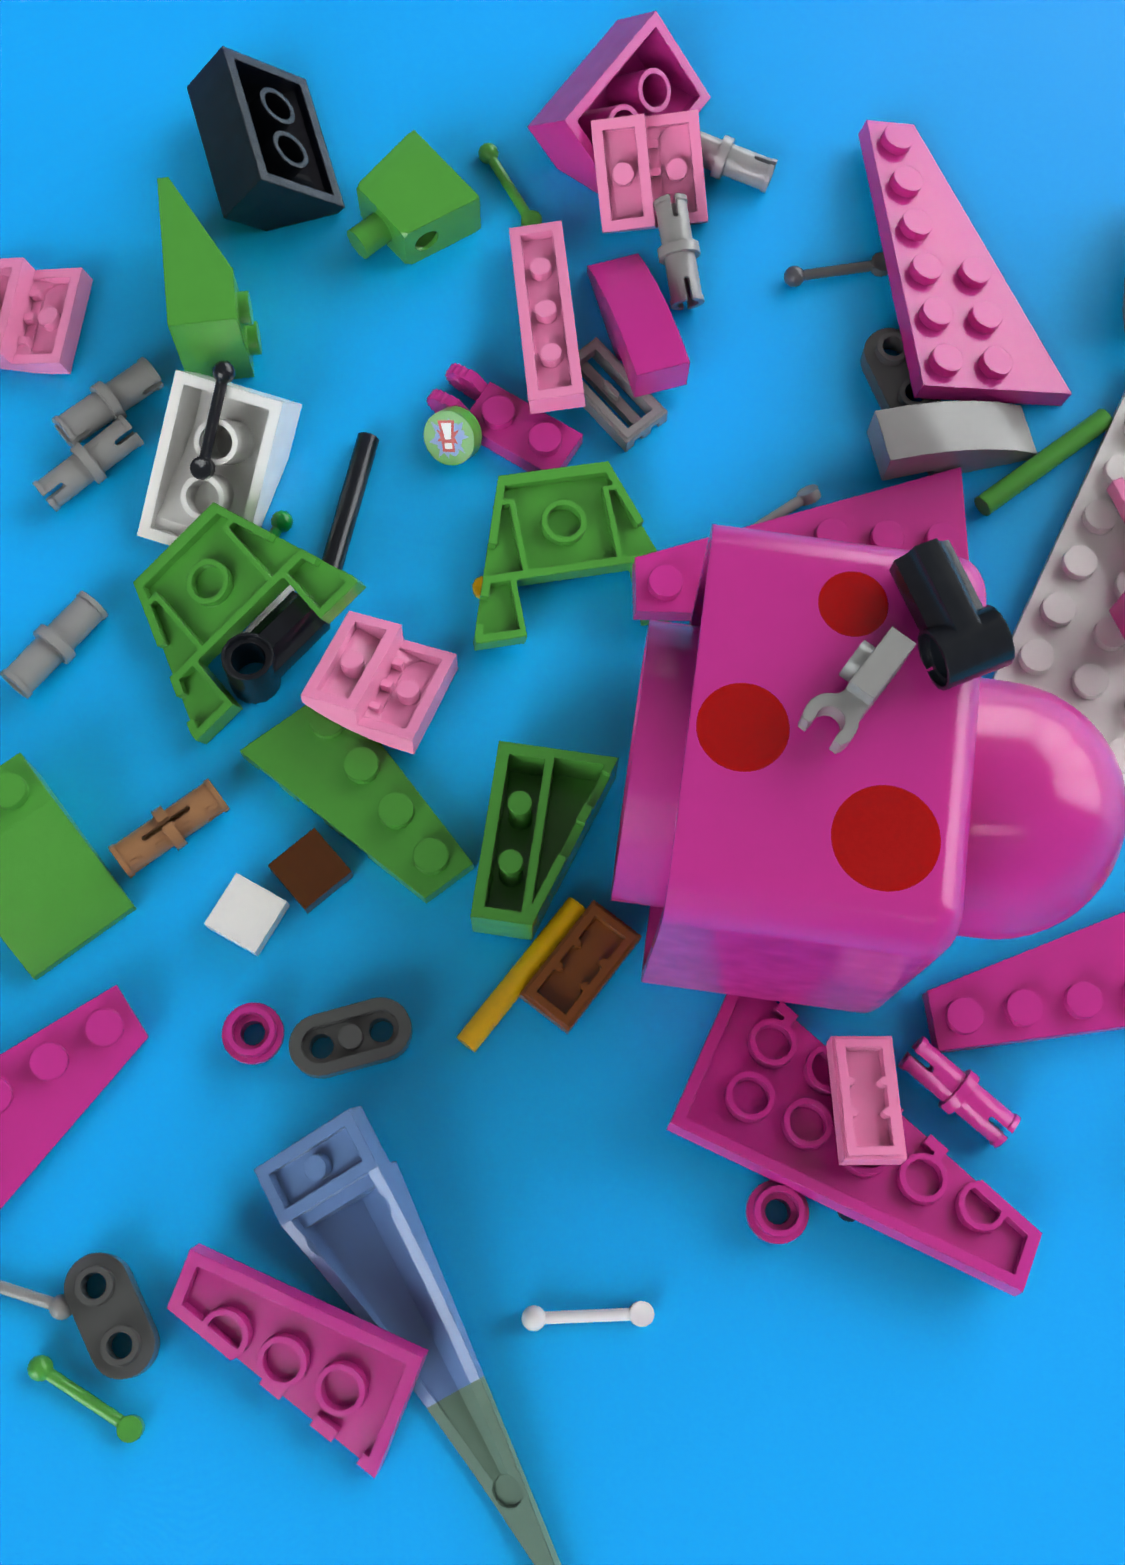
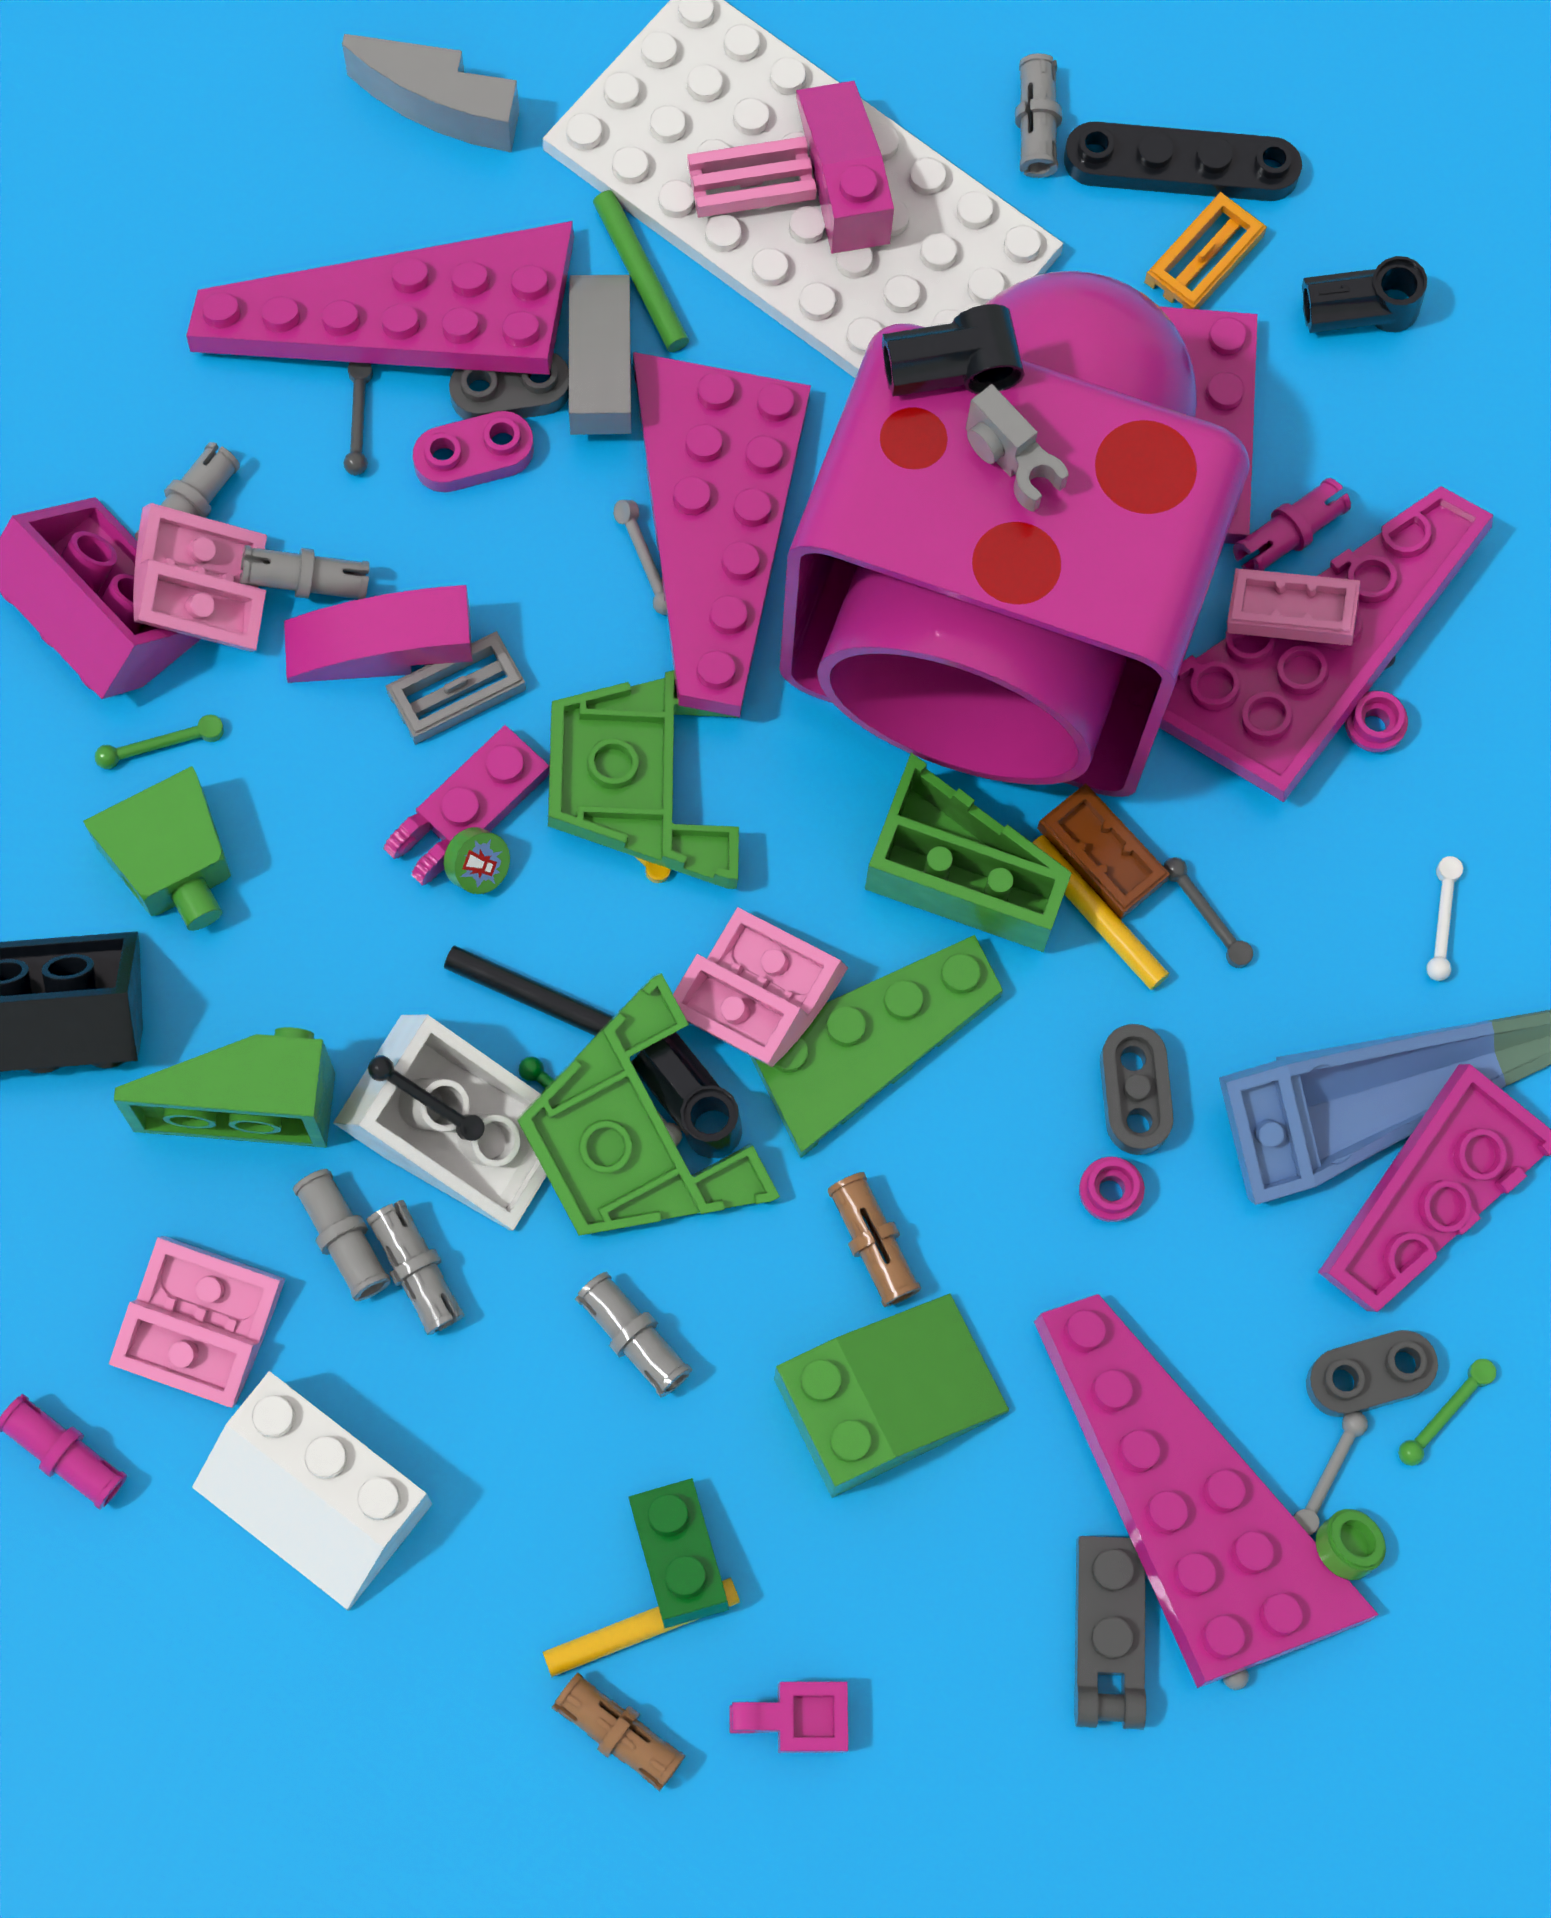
camera: 80 degrees left, 0 degrees up
(247, 914) = (982, 1176): white tile -> none
(310, 870) = (946, 1103): reddish brown tile -> none
(511, 1115) = (1238, 952): none -> dark grey hinge
(546, 318) = (355, 728): bright pink plate -> none
(827, 360) = (475, 454): none -> dark pink plate

